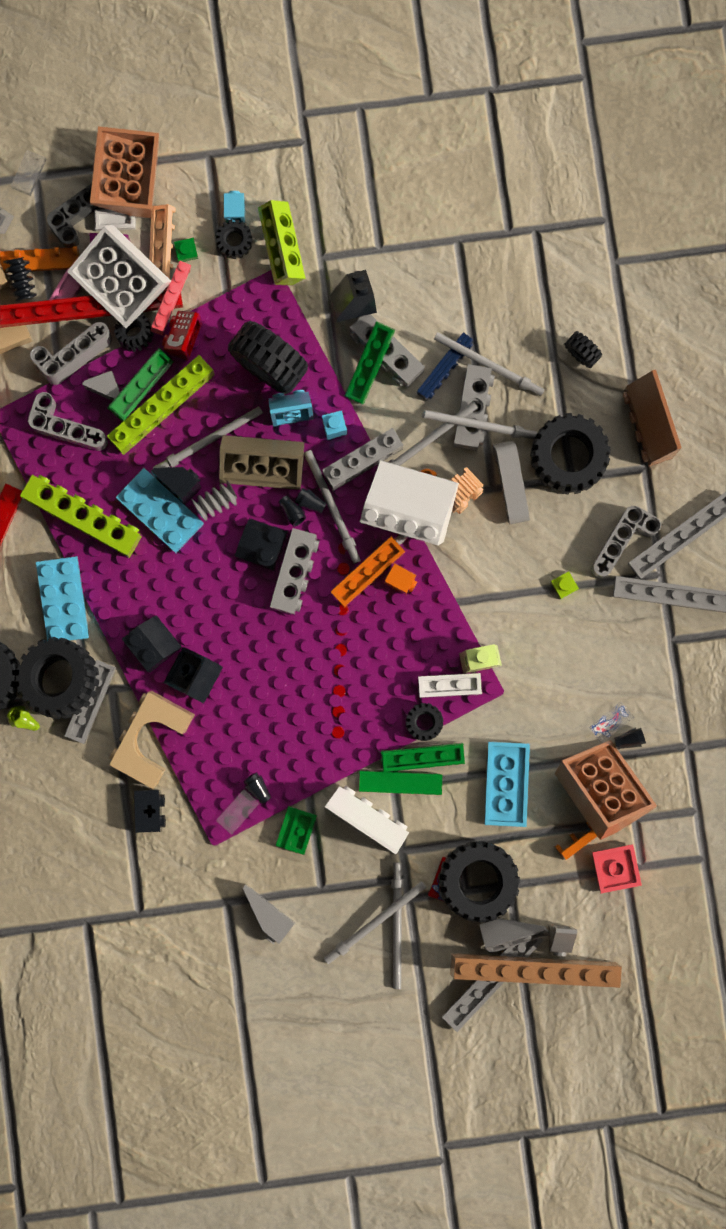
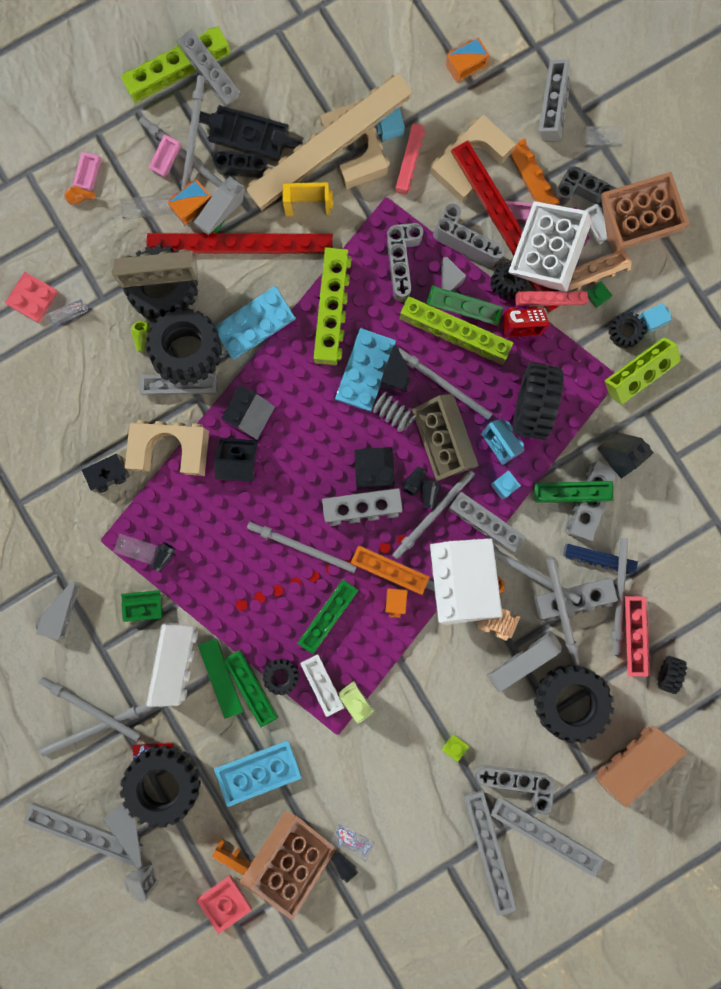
camera: 65 degrees right, 0 degrees up
(20, 278) = (510, 167): black piece -> none
(278, 676) = (267, 532): none -> light grey bar
(386, 652) = (327, 616): none -> green tile
(533, 365) = (637, 636): none -> coral brick
(535, 970) = (102, 872): medium nougat brick -> none

